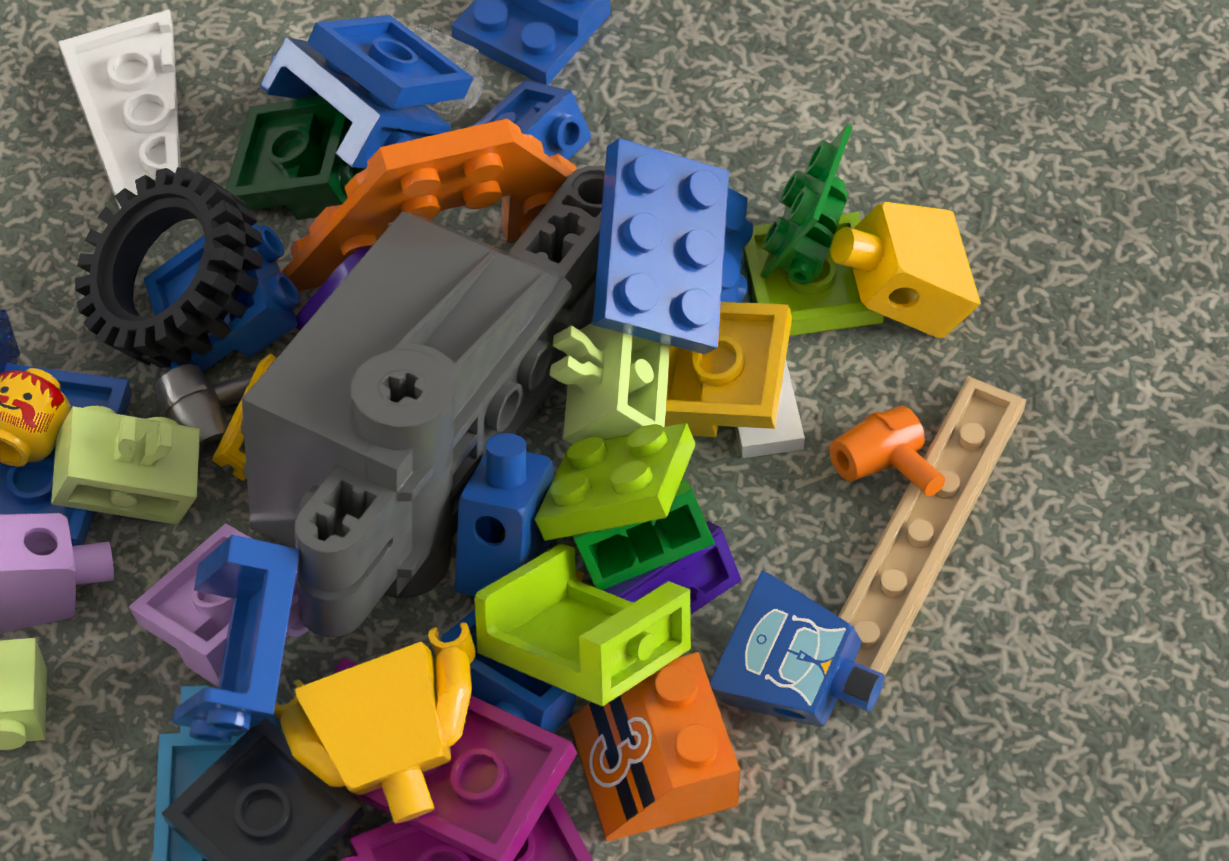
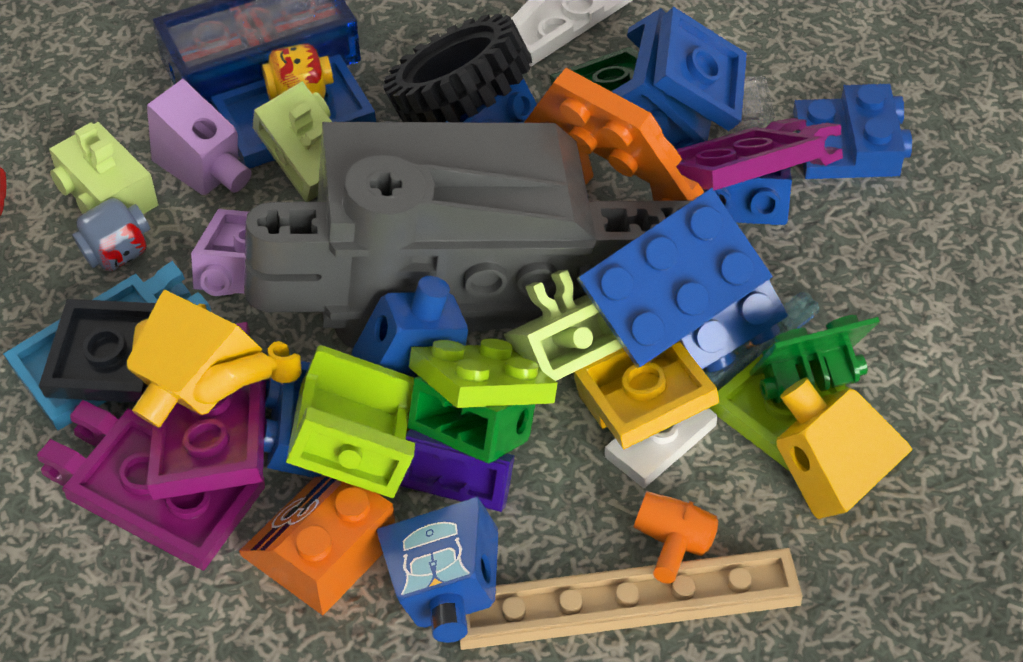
camera: 55 degrees right, 5 degrees down
(74, 730) = (111, 234): none -> sand blue head
(262, 585) = (191, 257): blue panel -> none
(536, 87) = (758, 152): none -> magenta tile

